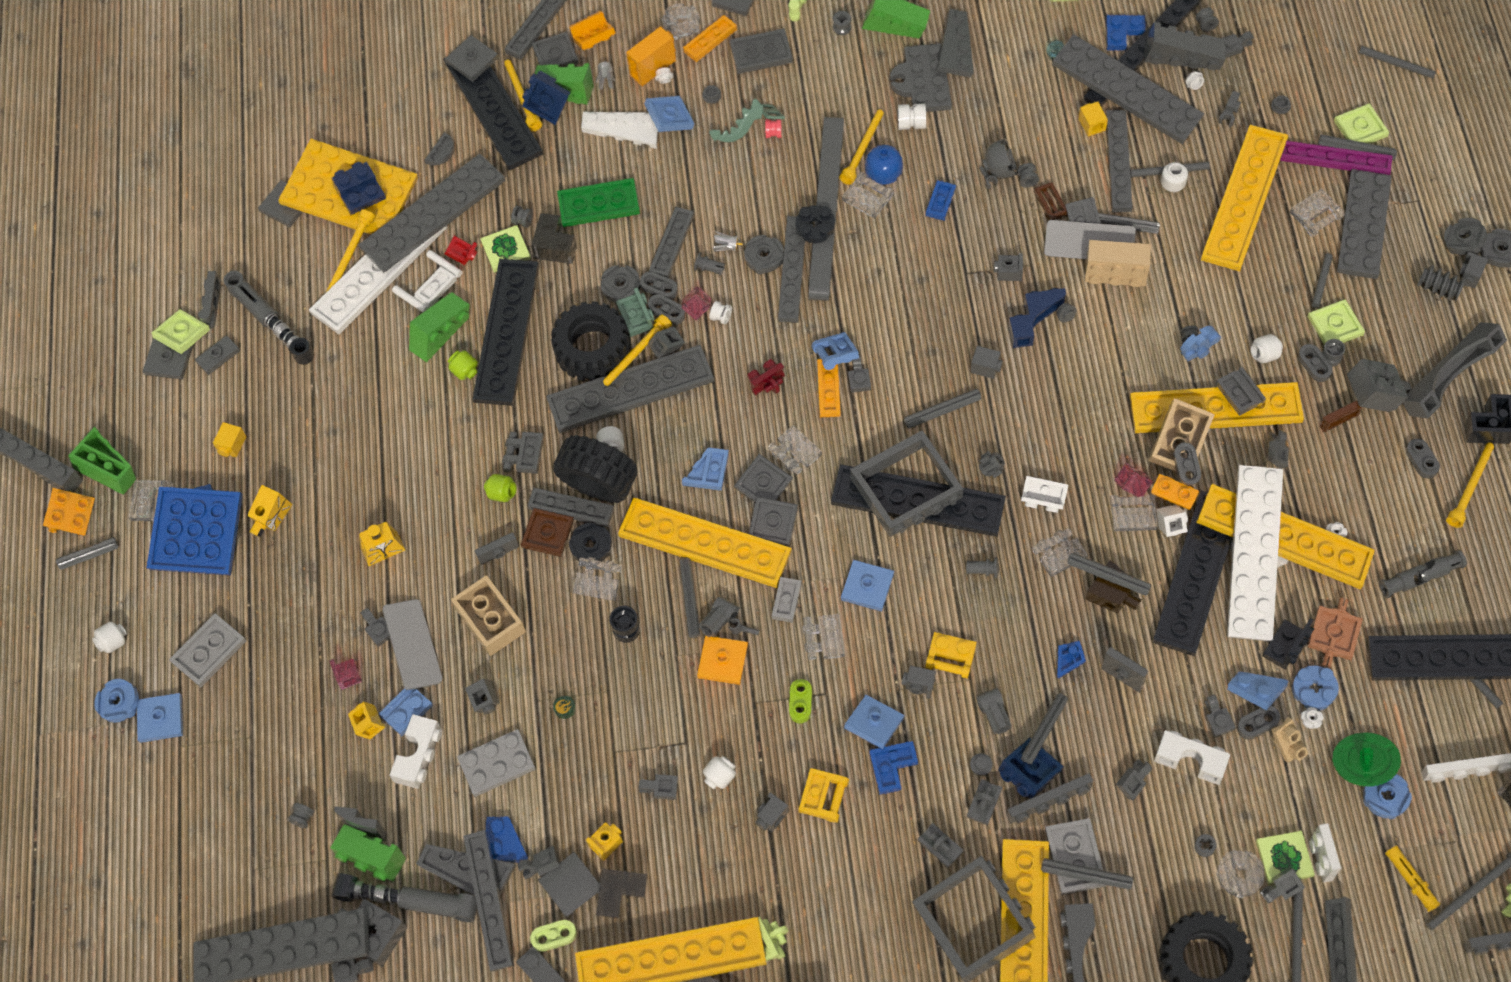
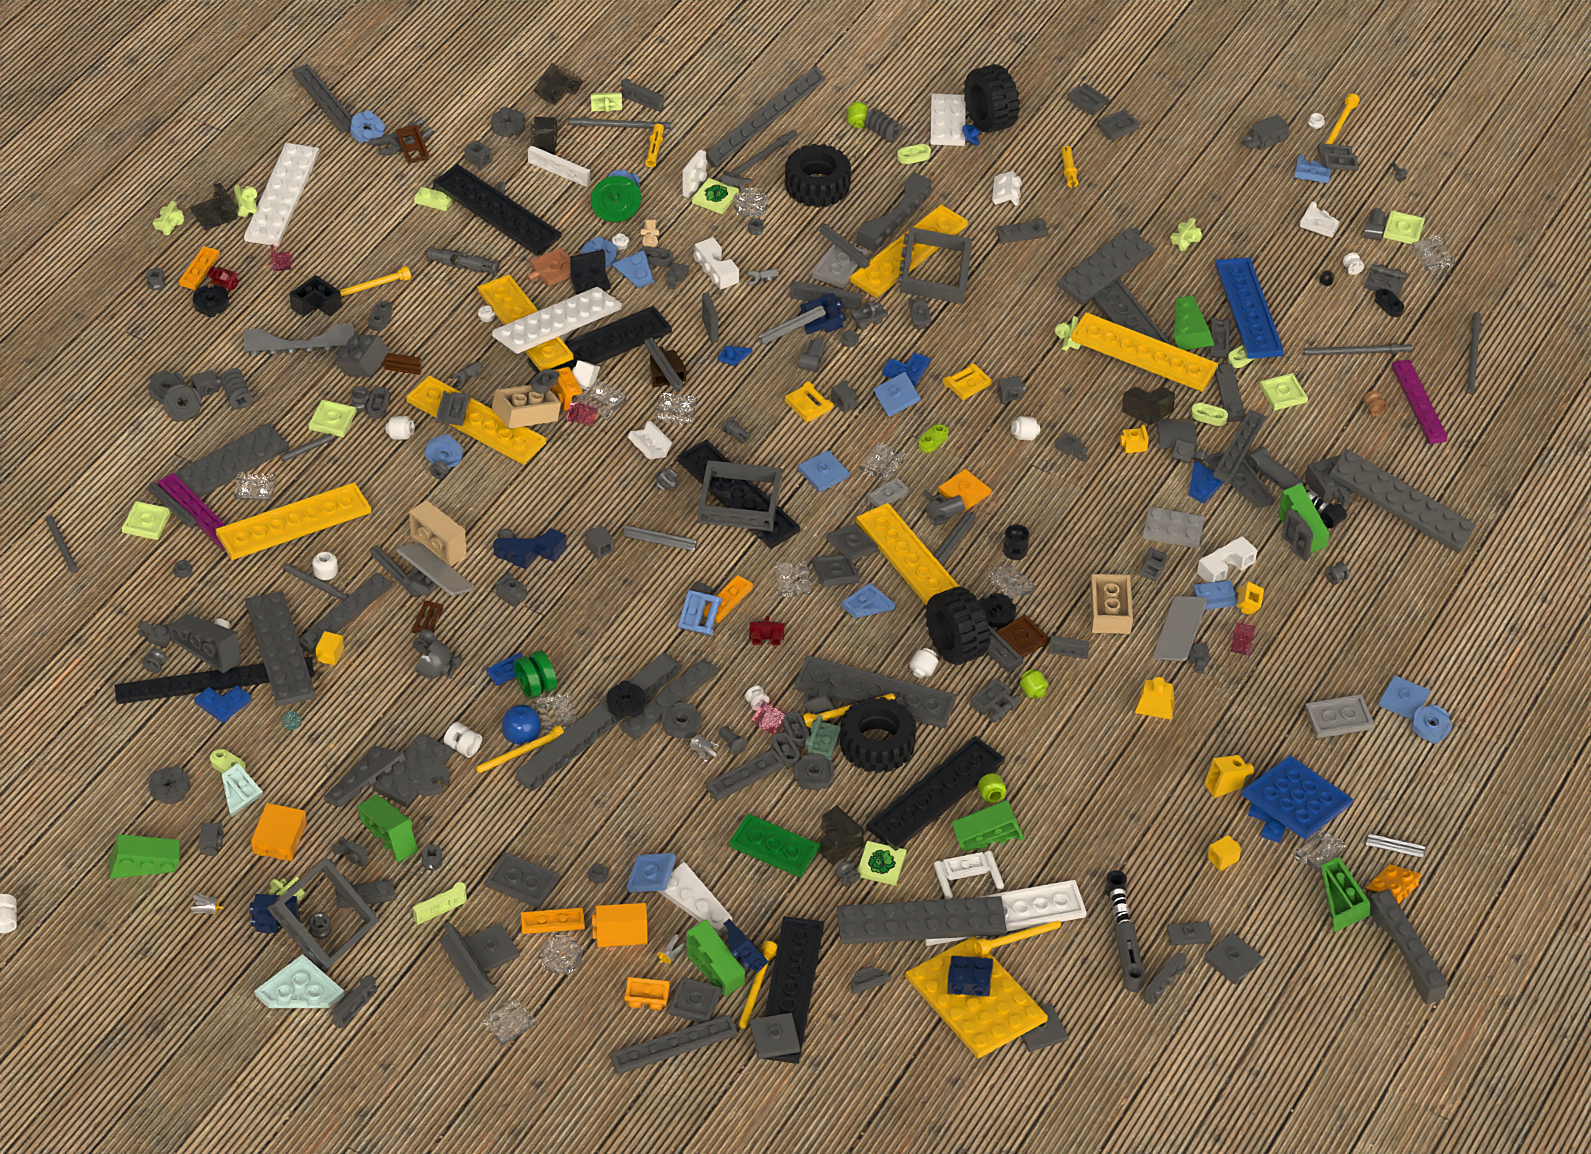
camera: 150 degrees left, 15 degrees down
(109, 637) = (1412, 768): white head -> none
(180, 331) = (1209, 968): yellowish green tile -> none
(461, 250) = (919, 878): red bracket -> none
(564, 707) = (1099, 529): clear green tile -> none
(745, 123) = (578, 820): sand green piece -> none
(773, 128) = (578, 807): coral wheel -> none
(908, 196) = (535, 674): none -> green wheel
(1232, 106) = (221, 588): dark grey plate -> none

